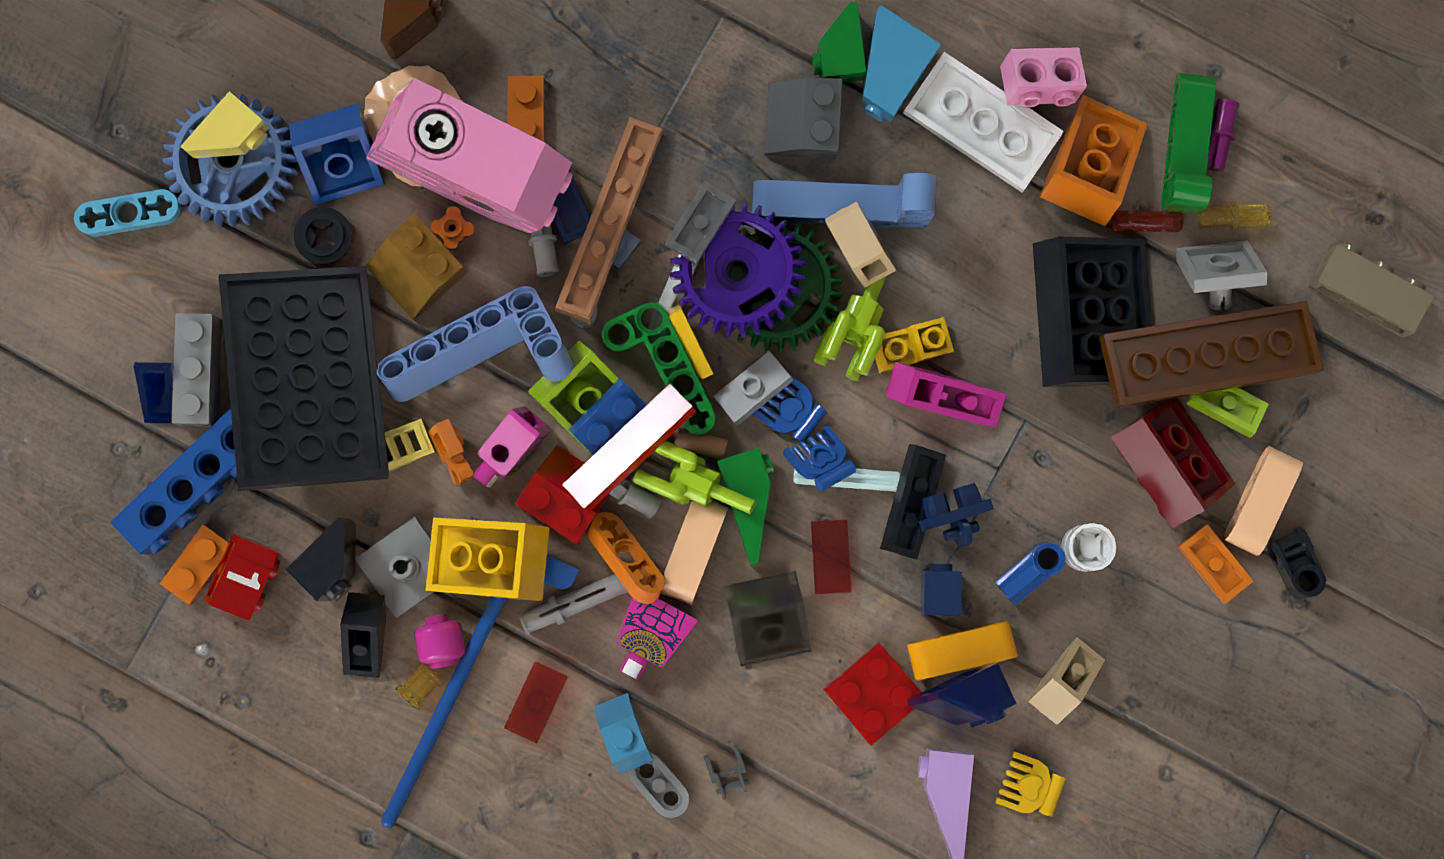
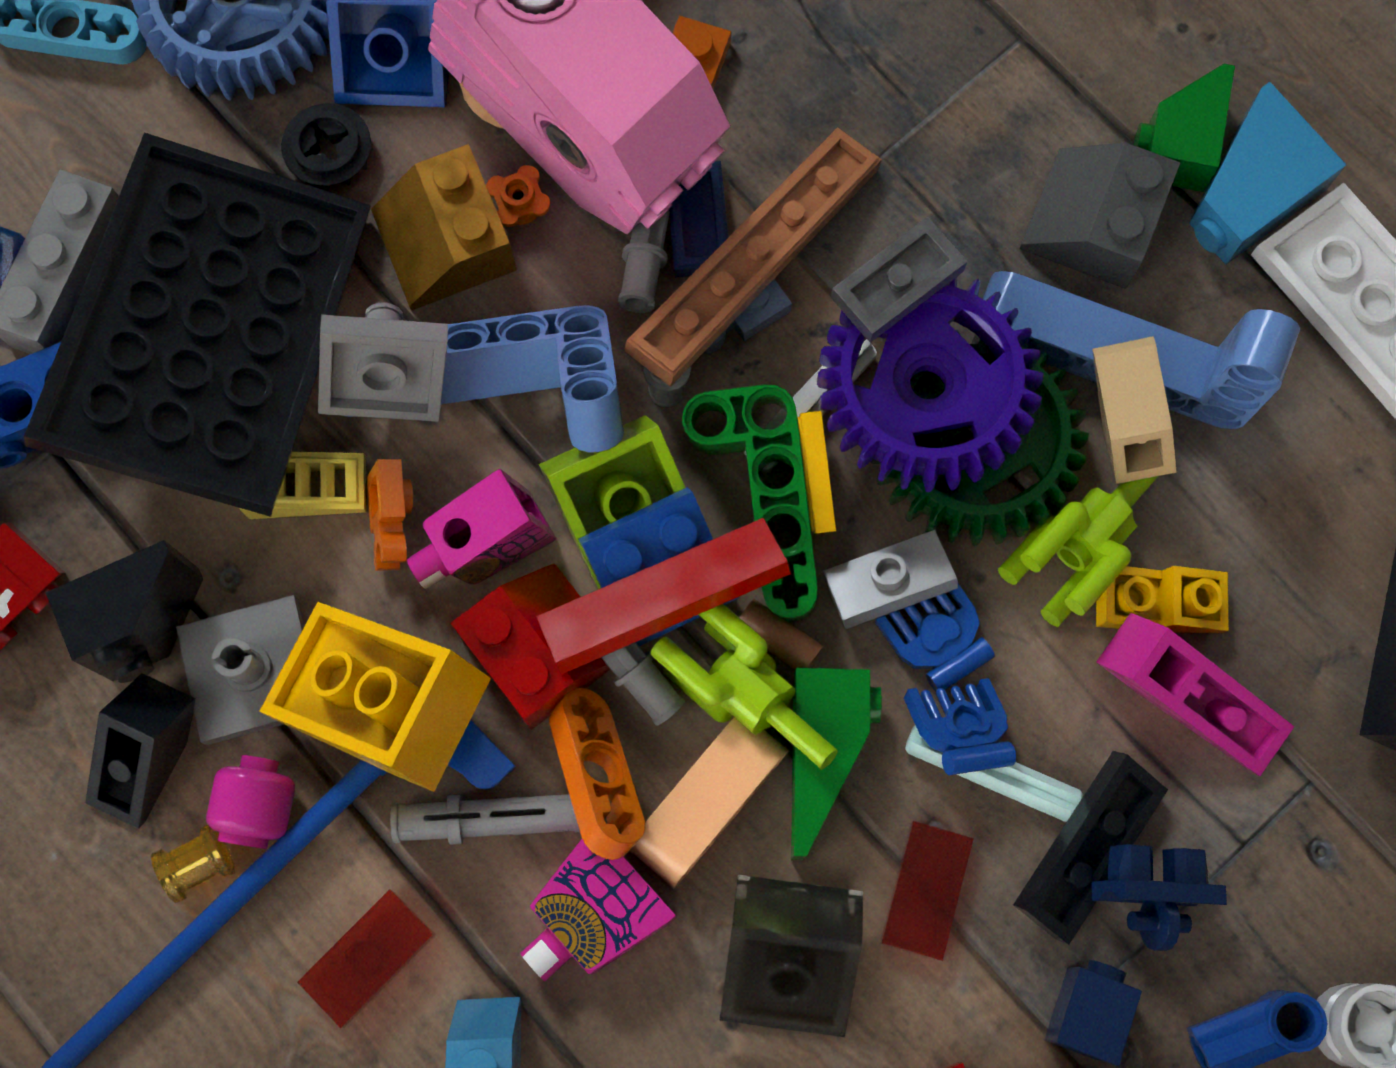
camera: 25 degrees right, 10 degrees down
(419, 370) = (381, 365): none -> light grey tile

